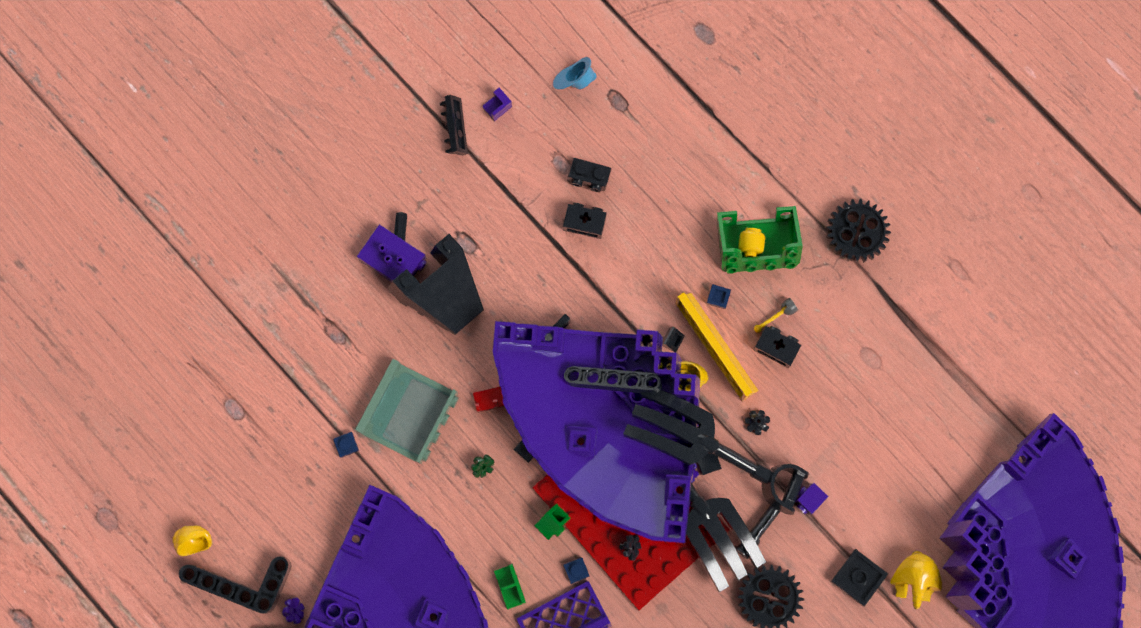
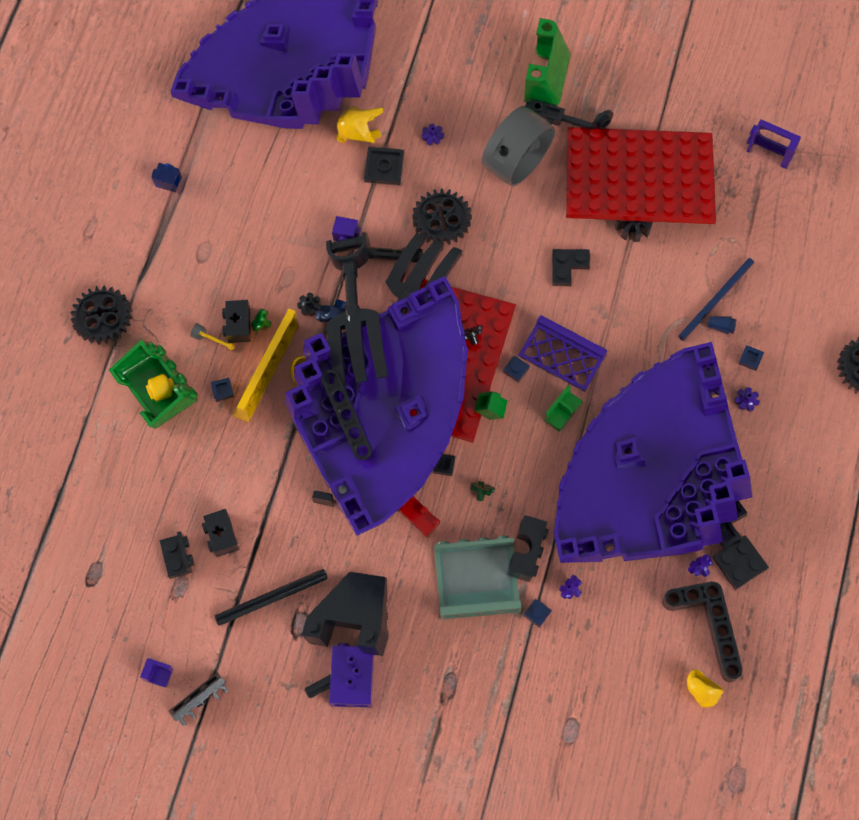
camera: 120 degrees left, 10 degrees down
(346, 485) = (571, 588): none -> dark purple plant
(390, 459) = (532, 532): none -> black arch
(502, 234) = (271, 597): none -> black axle
(577, 75) = (91, 620): dark azure piece -> none
(673, 339) = (278, 407): black slope -> none
(732, 434) = (328, 312): none -> dark blue hair
(765, 368) = (261, 320): none -> green plant
(969, 365) = (166, 177): none -> clear blue brick

